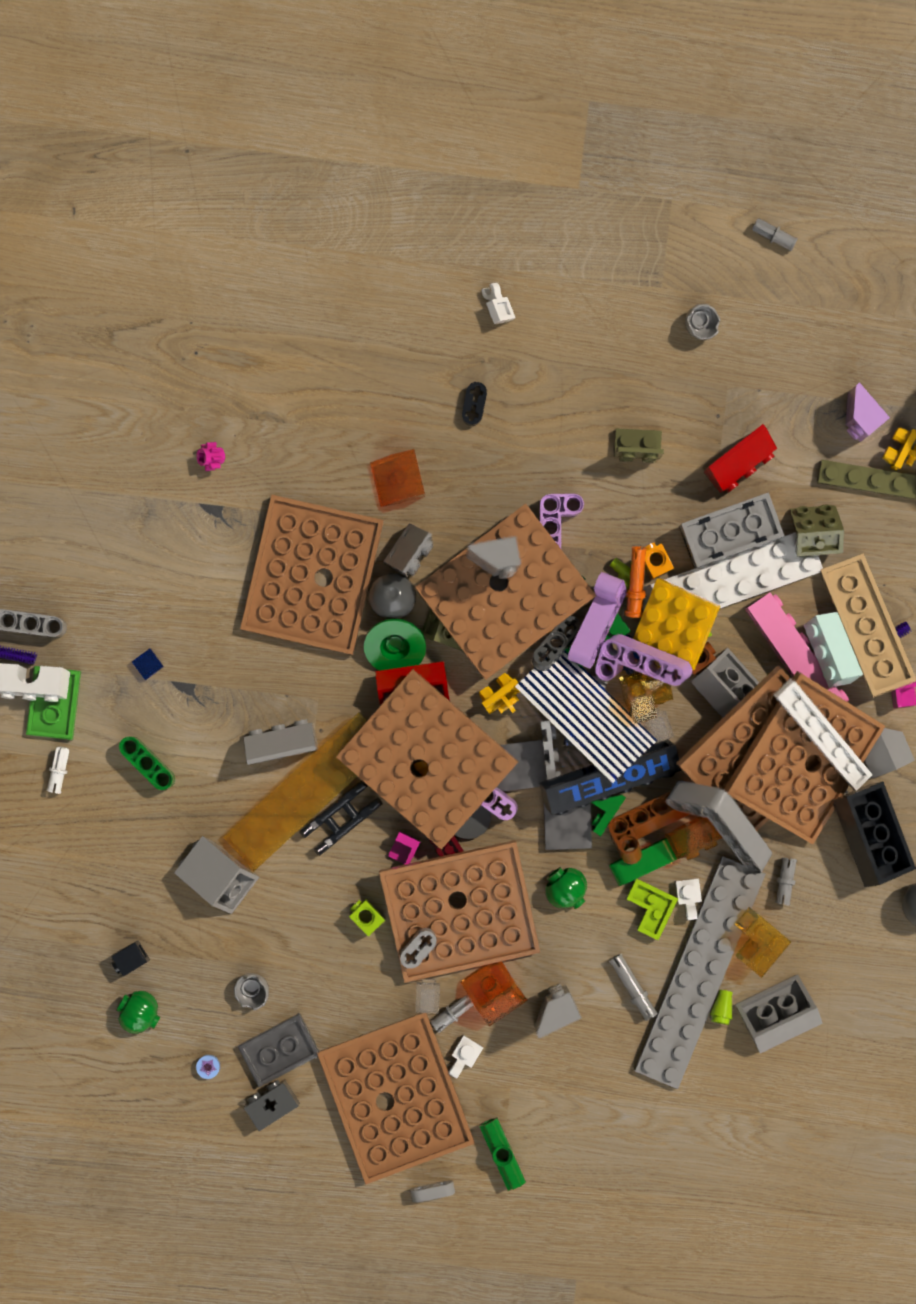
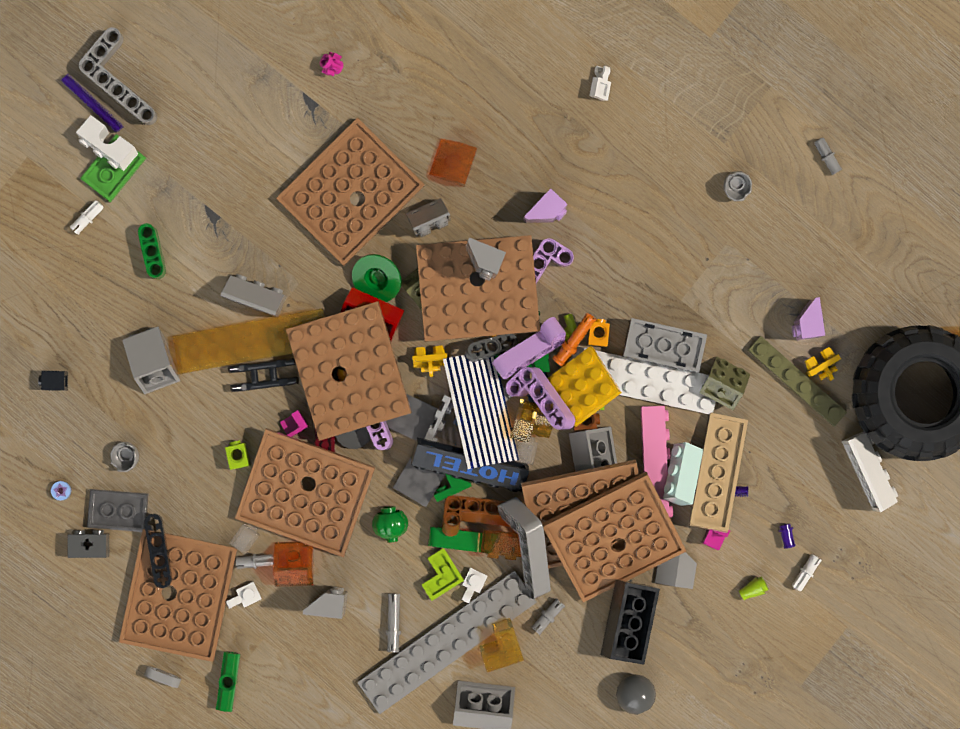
camera: 30 degrees right, 0 degrees up
(138, 1012) = (36, 421): green plant -> none
(148, 664) = (196, 182): clear blue tile -> none
(344, 1068) = (161, 550): none -> black beam
(392, 596) = (396, 242): dark grey piece -> none
(414, 944) = (261, 503): light grey beam -> none
(468, 403) = (537, 139): black beam -> none
(525, 466) = (547, 209): none -> lavender slope
(638, 444) = (637, 243): olive bracket -> none
(722, 1008) = (446, 677): lime cone -> none
(741, 460) = (703, 300): red slope -> none
(822, 734) = (636, 528): white plate -> none

